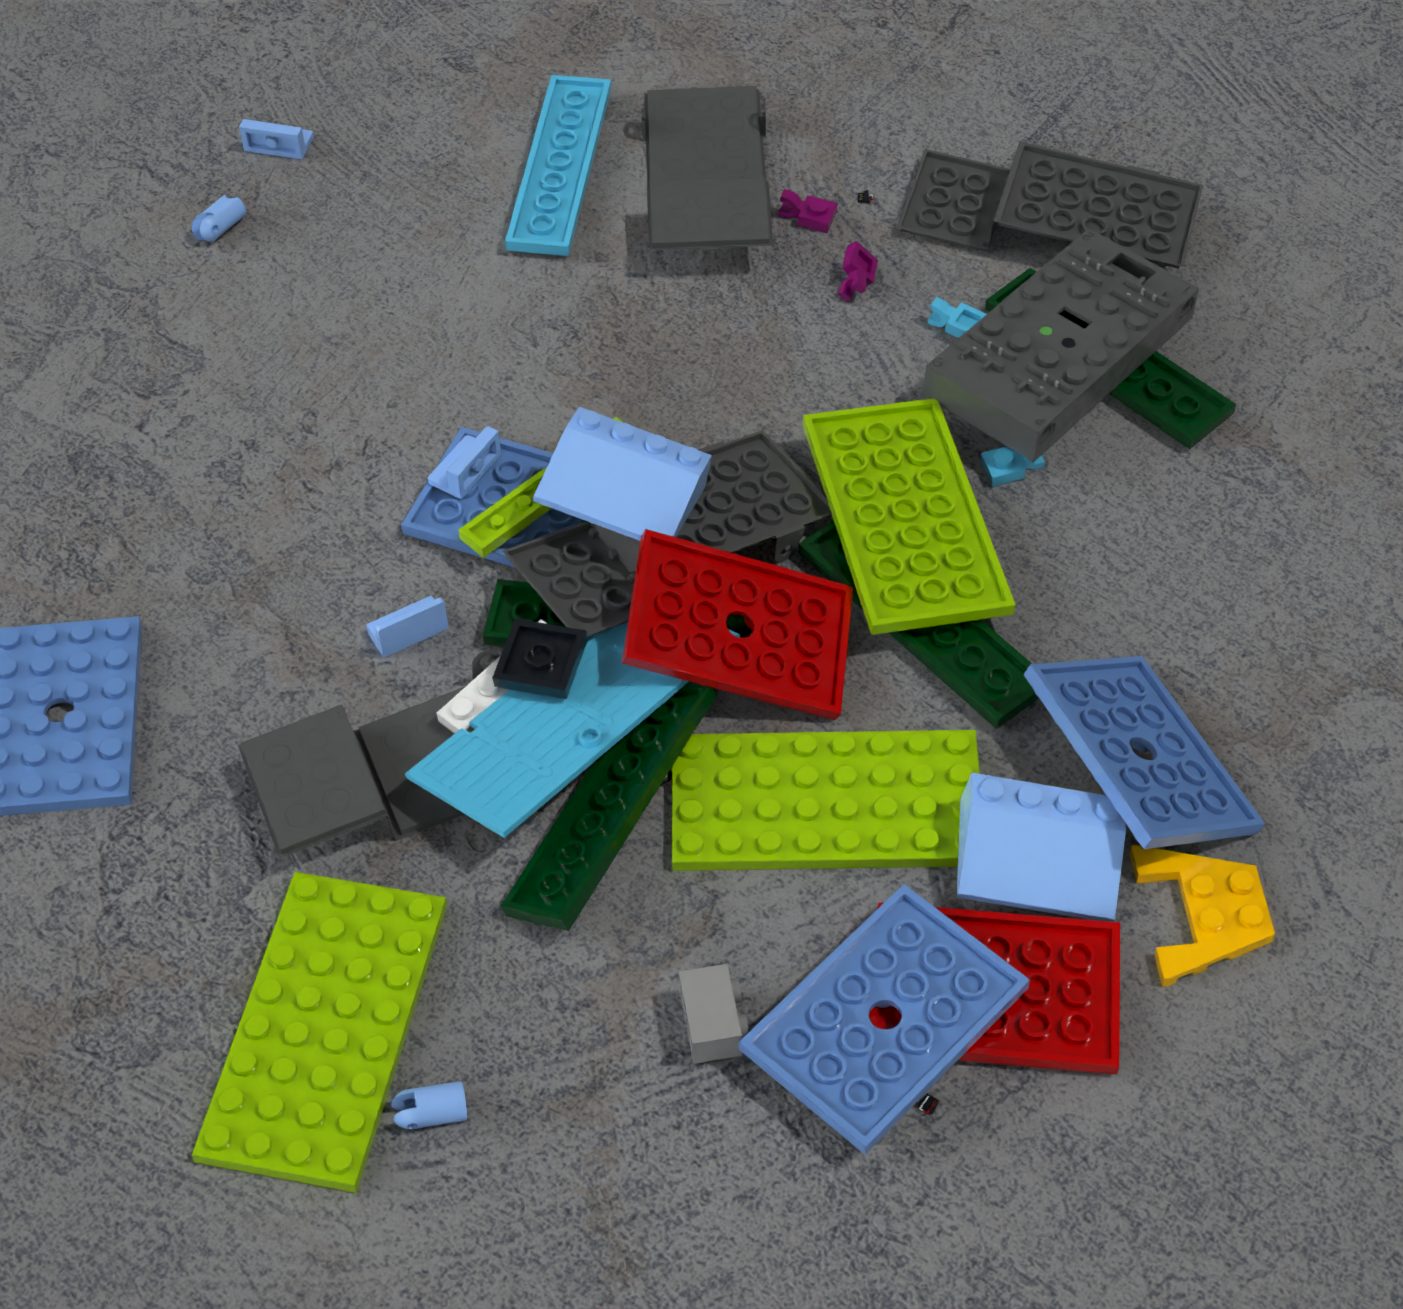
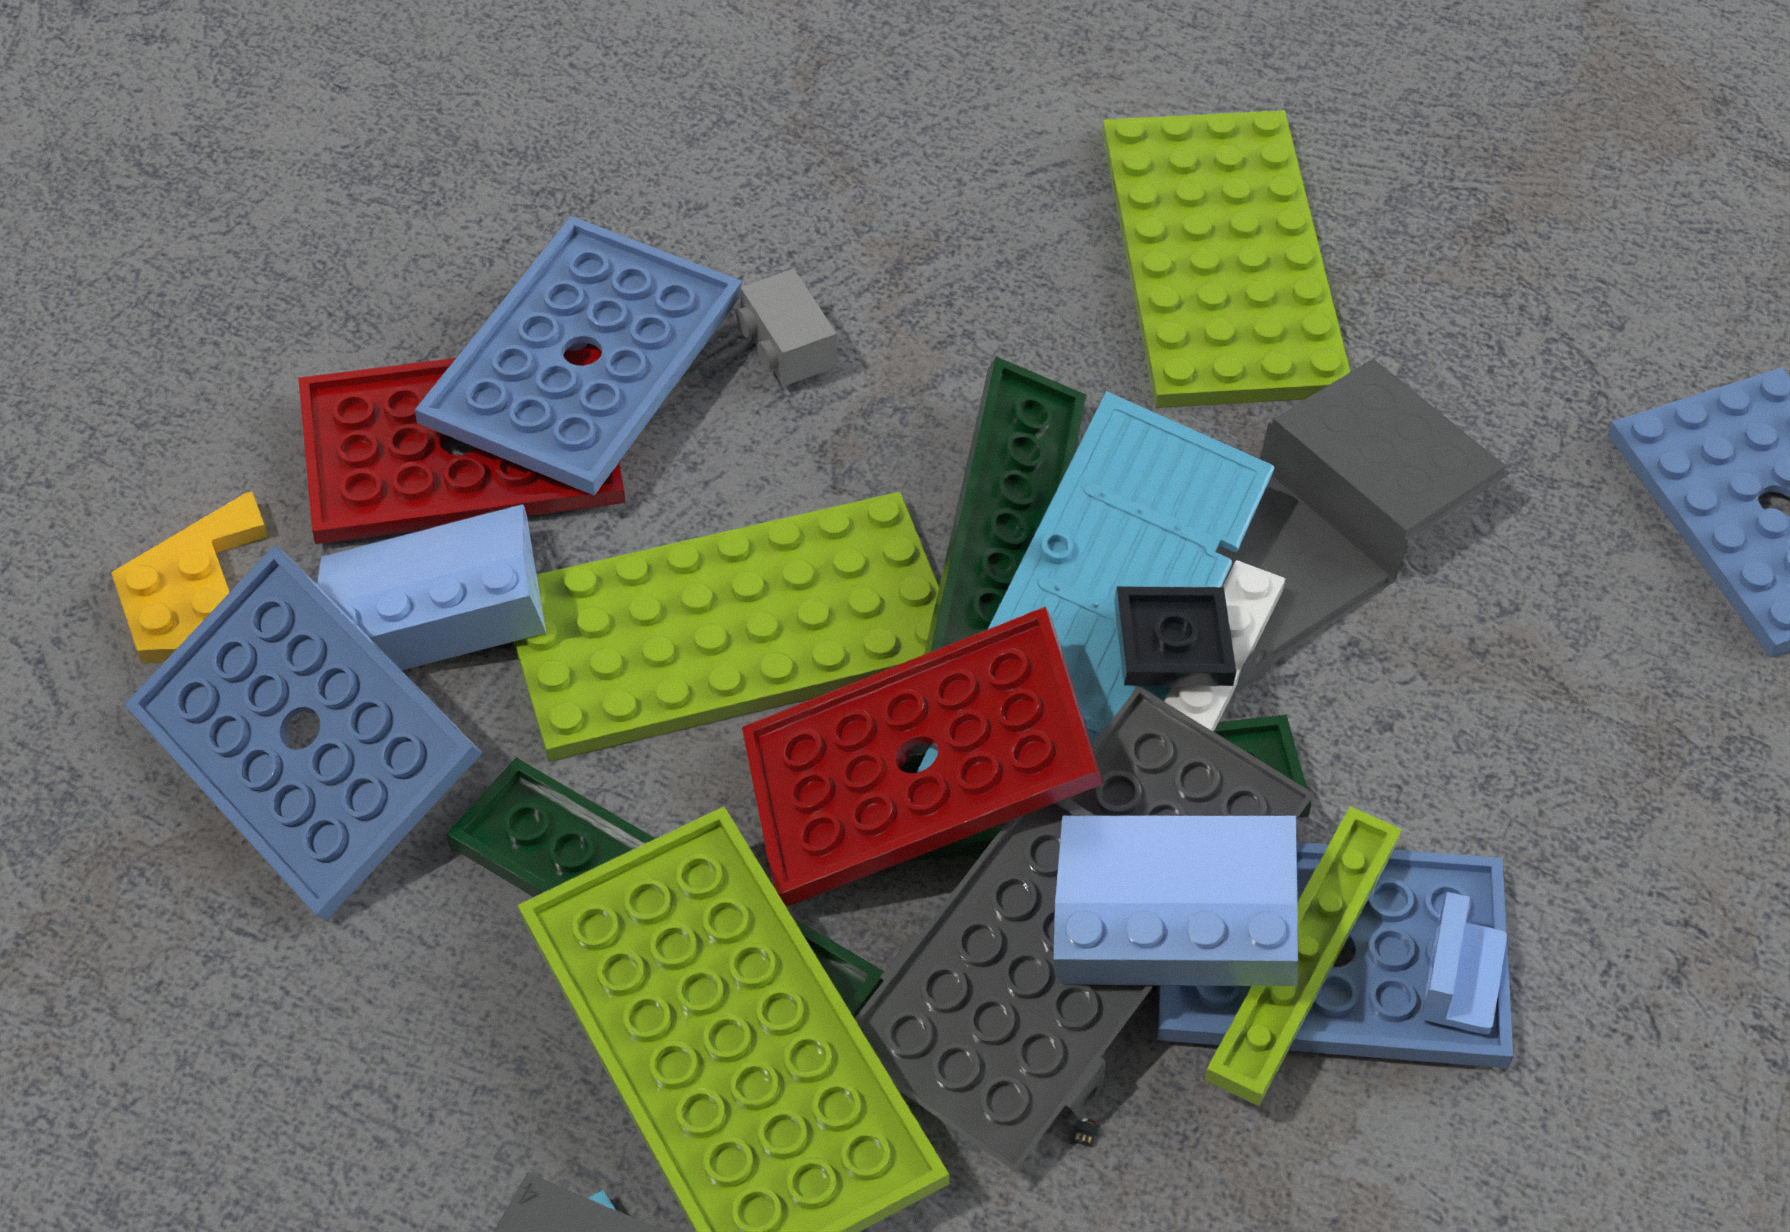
camera: 160 degrees right, 0 degrees up
(408, 625) = (1402, 721): light blue panel -> none
(430, 1105) = (1062, 199): light blue piece -> none

